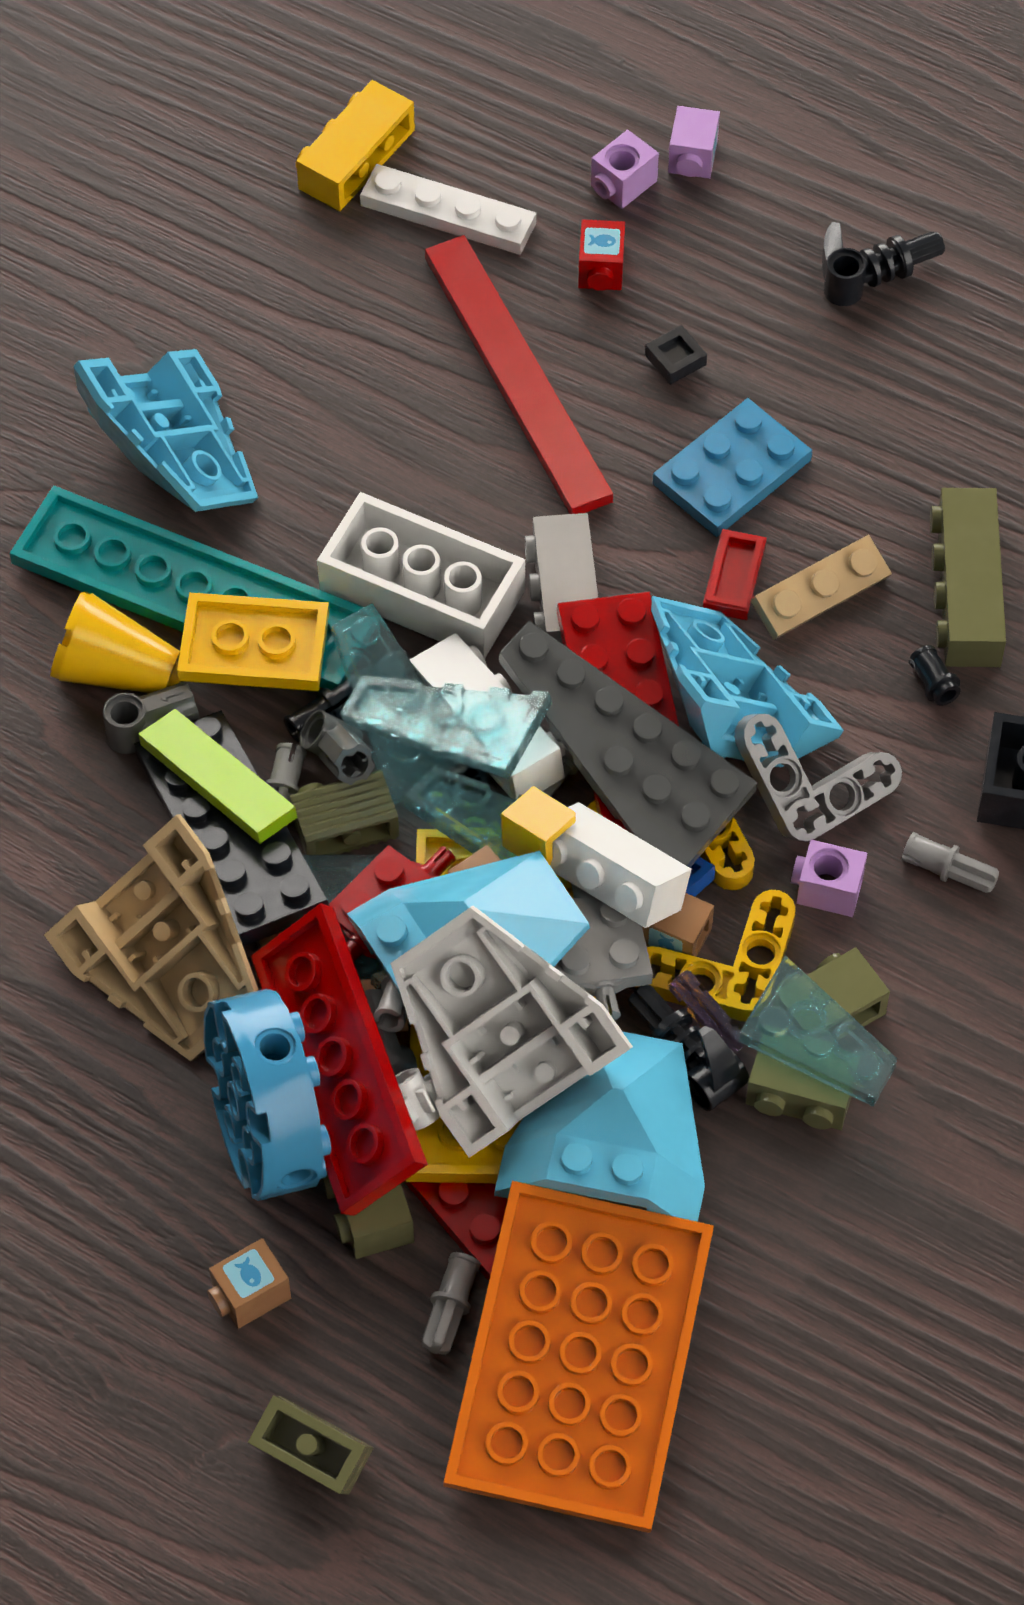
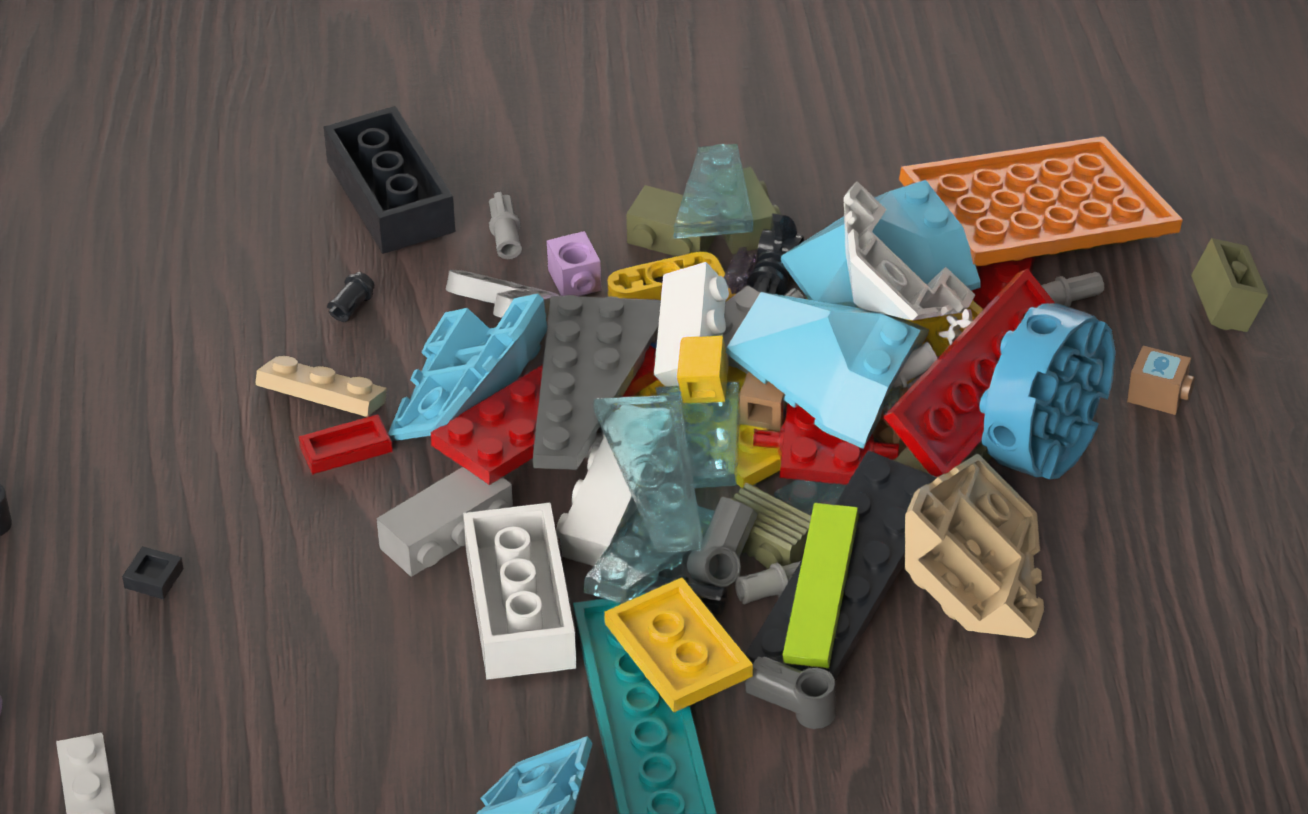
camera: 125 degrees left, 15 degrees down
(112, 650) = (768, 743): yellow cone -> none
(519, 376) = (243, 672): tile -> none
(601, 254) = (78, 667): red brick -> none
(732, 467) = (240, 493): dark azure plate -> none
(969, 576) = (245, 312): olive brick -> none

